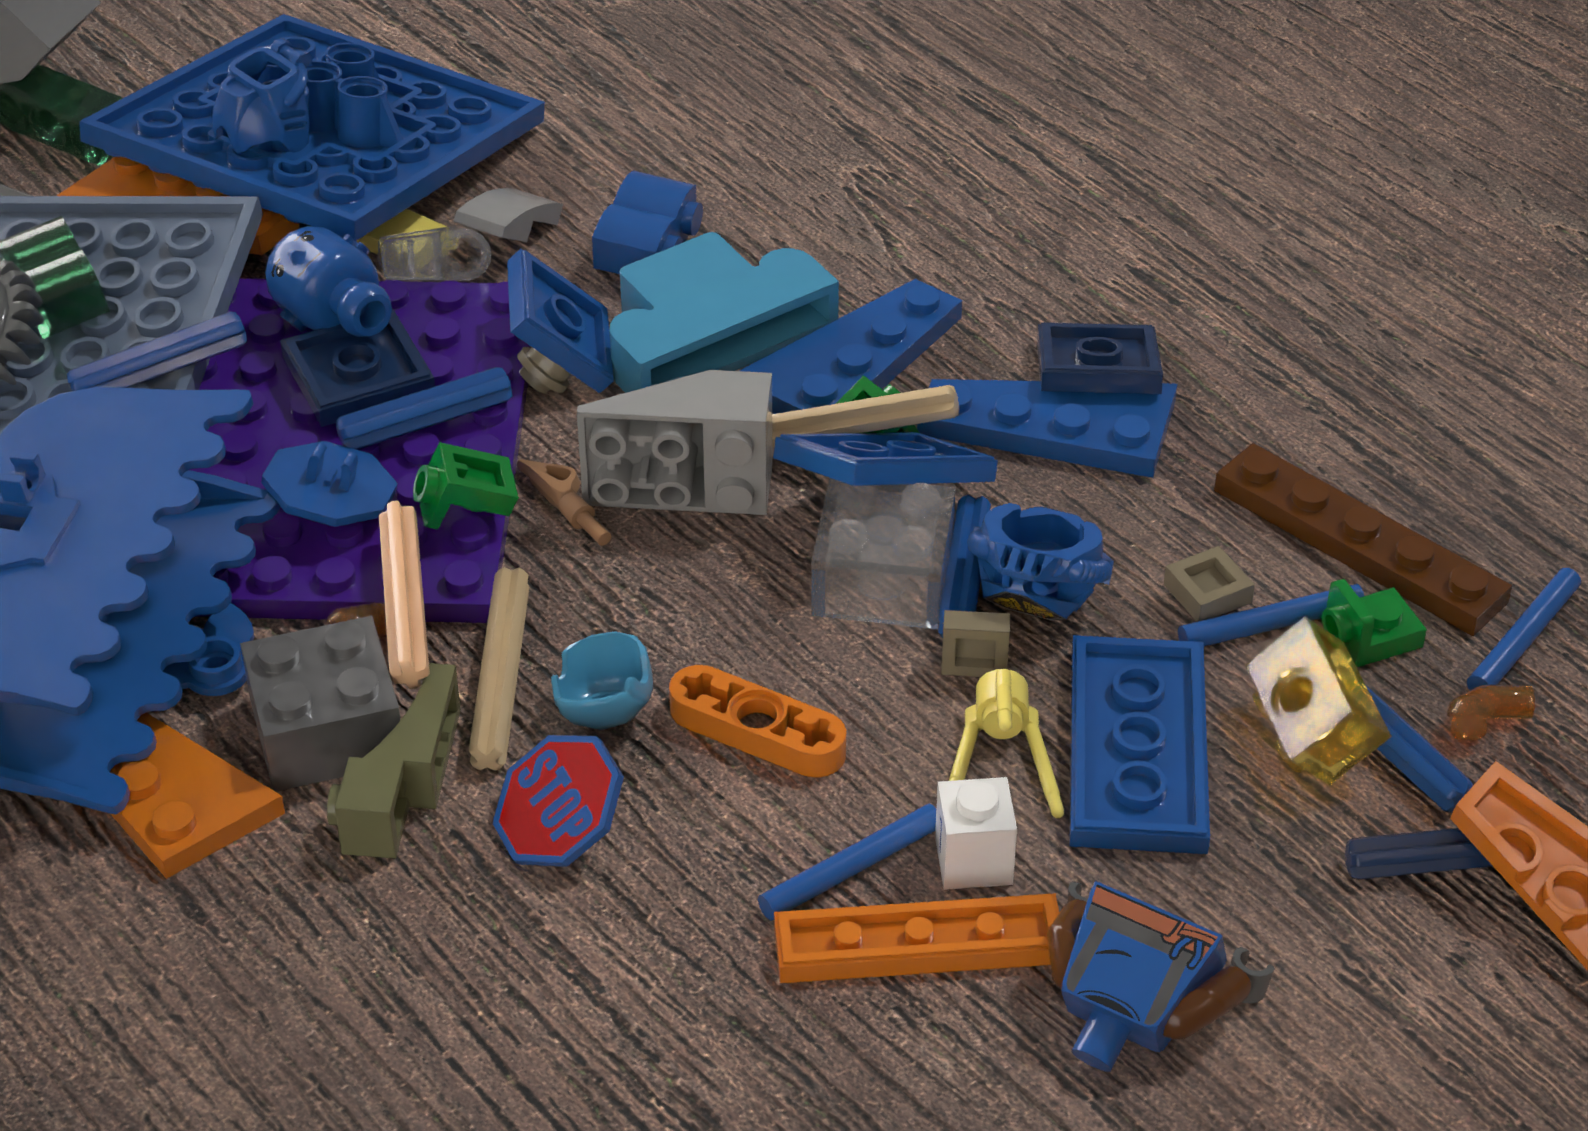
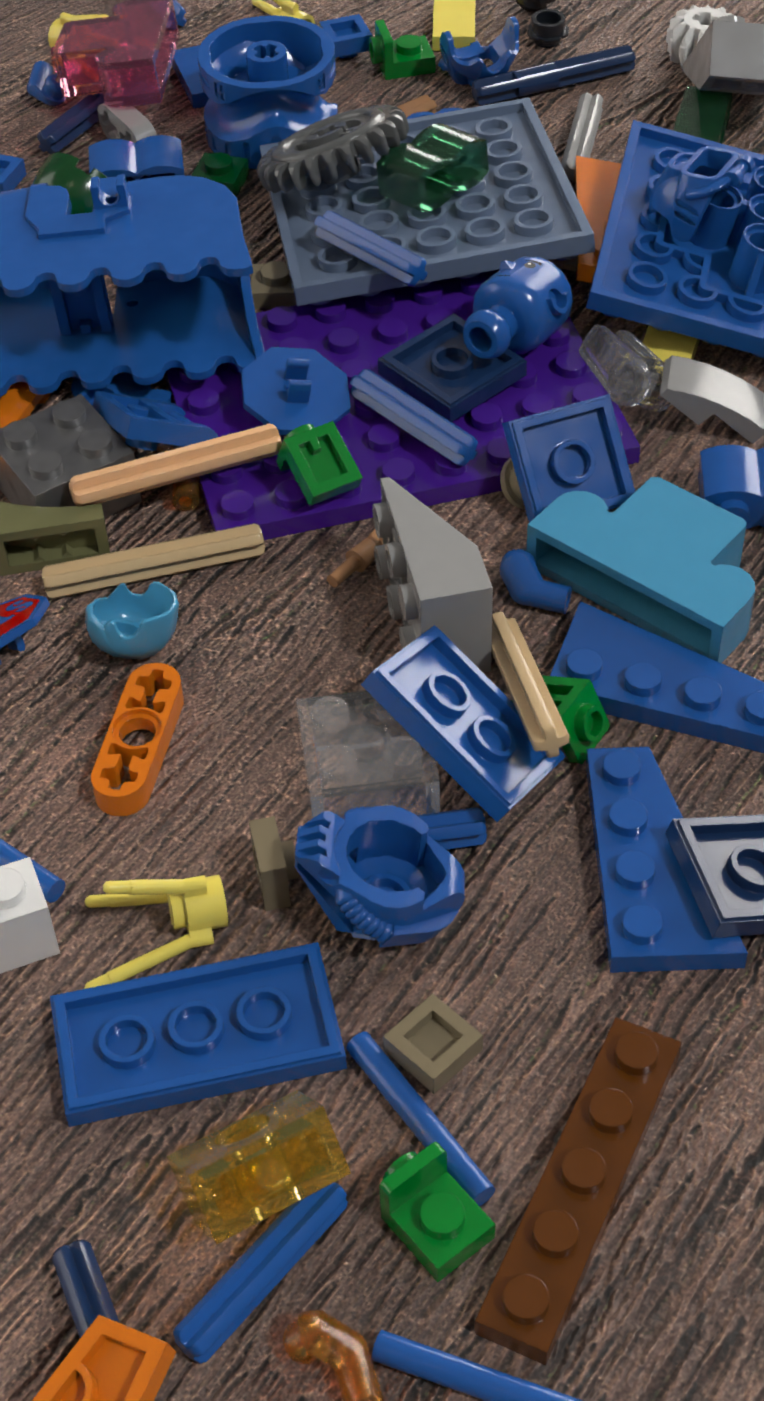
camera: 75 degrees right, 5 degrees up
(330, 598) = (149, 421): none -> blue plate

